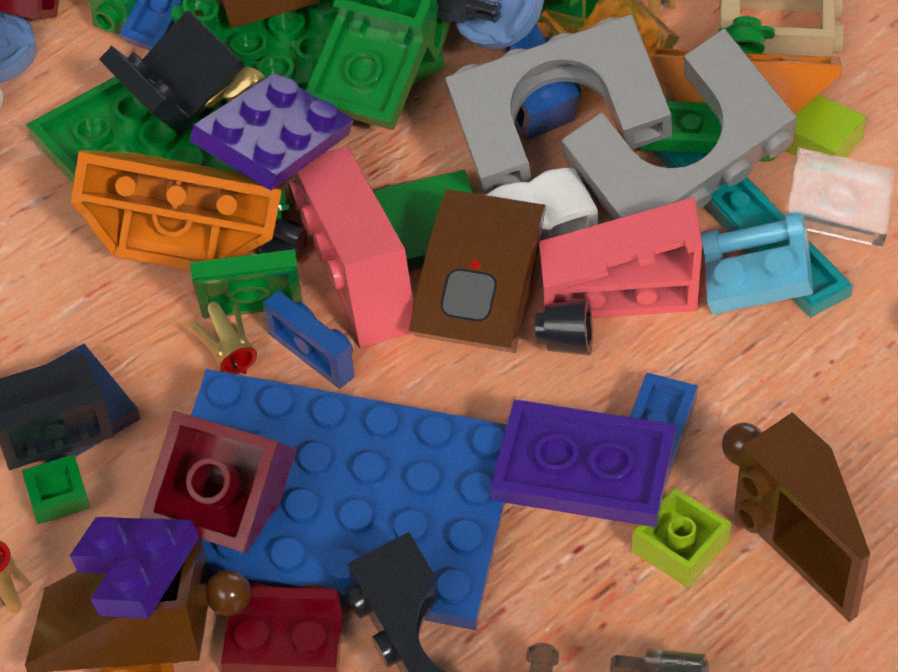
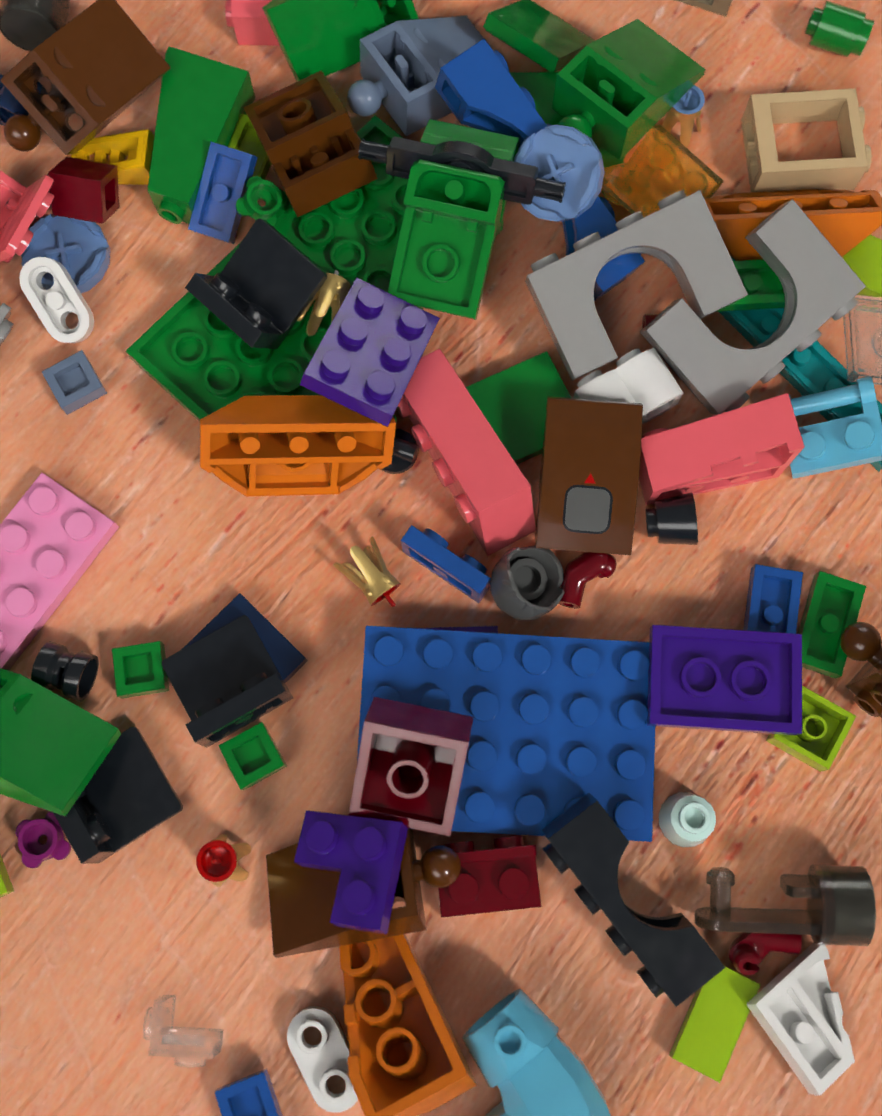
camera: 10 degrees left, 25 degrees up
(245, 281) = (382, 523): green tile -> none
(391, 362) = (527, 582): none -> dark grey hair
(456, 364) = (582, 570): none -> dark red arm
(523, 607) = (686, 819): none -> light aqua hat
(701, 456) = (828, 611): none -> green plate
(750, 34) = (790, 178): green plate -> none

